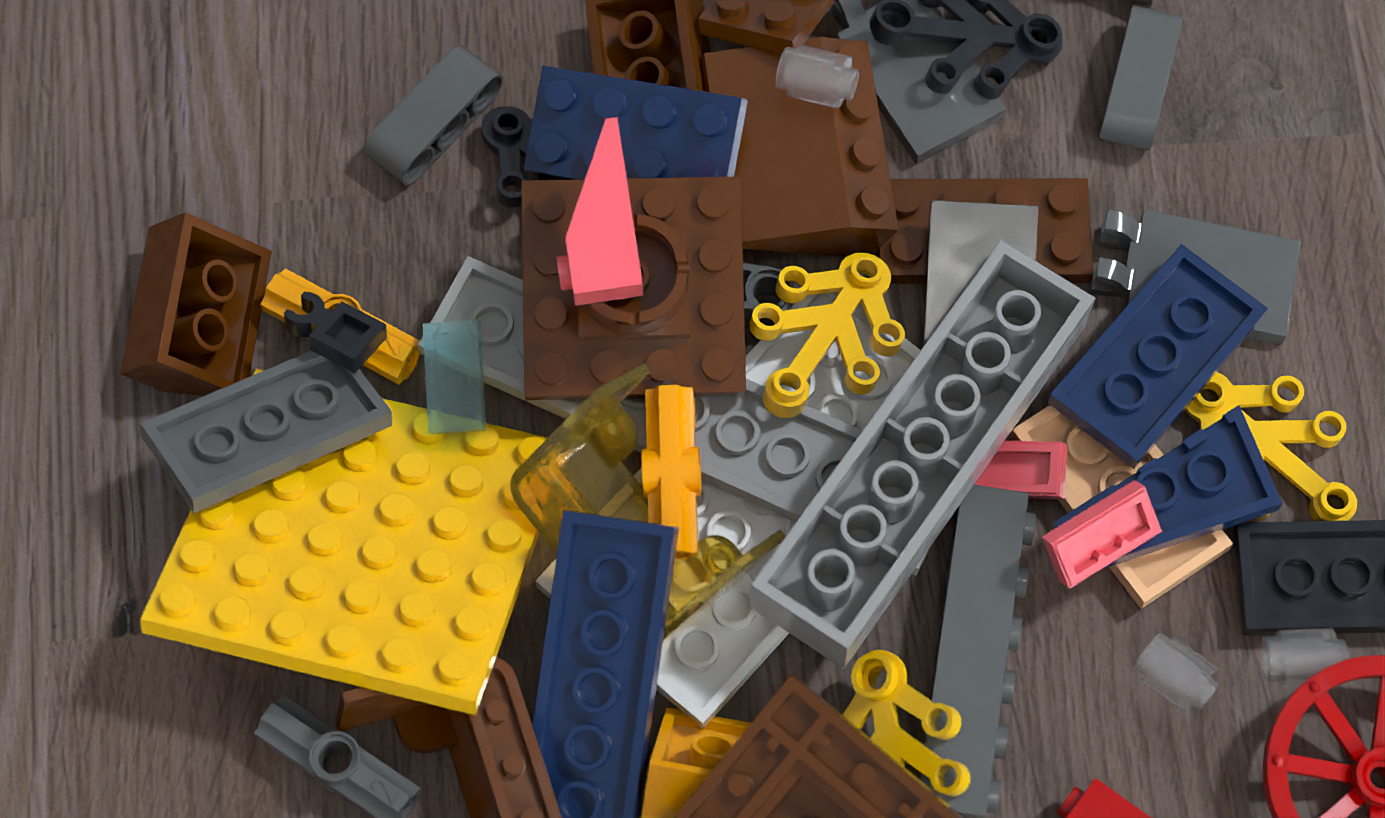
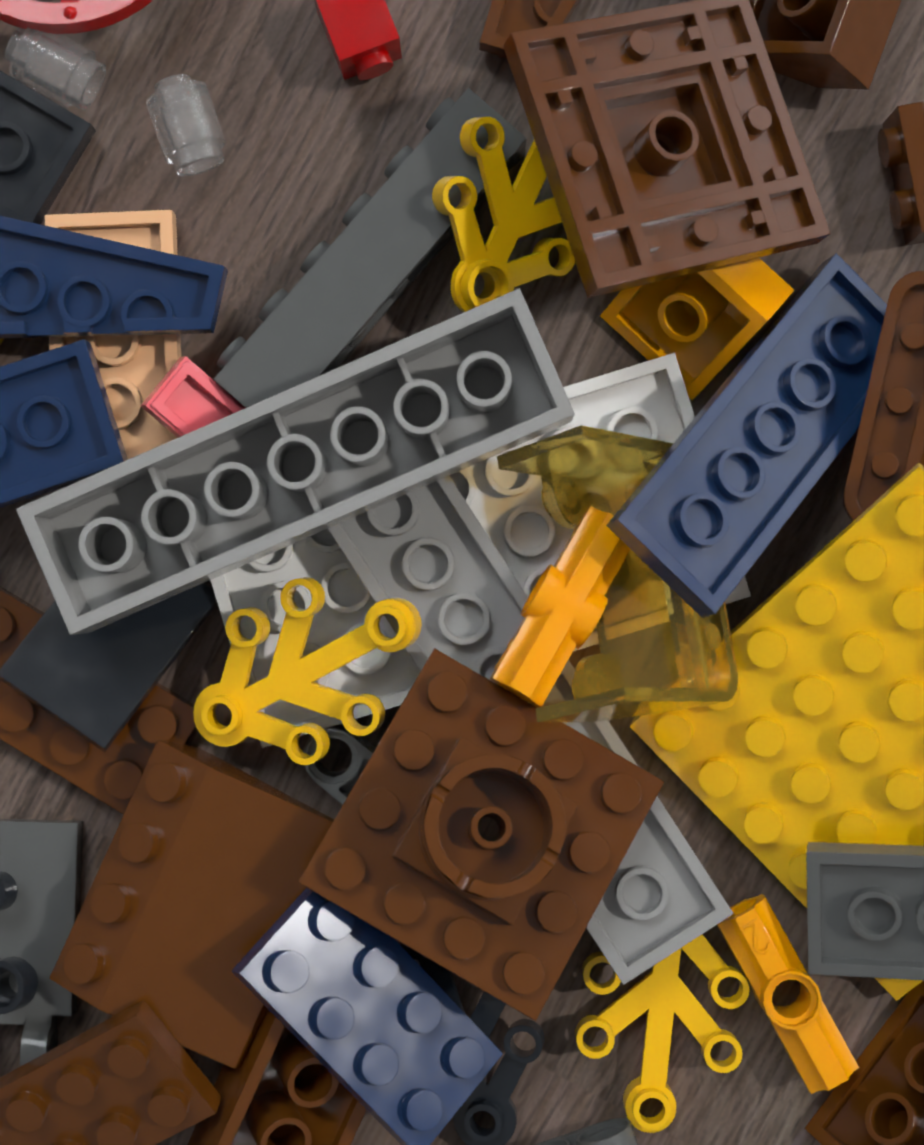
camera: 150 degrees left, 20 degrees up
(339, 335) = (811, 972): black plate -> none
(429, 277) = (662, 995): none -> yellow plant
(454, 377) = (718, 853): clear light blue tile -> none
(601, 235) = (517, 870): coral slope -> none
(817, 75) = (136, 956): clear brick -> none
(1102, 534) = (175, 275): coral plate -> none

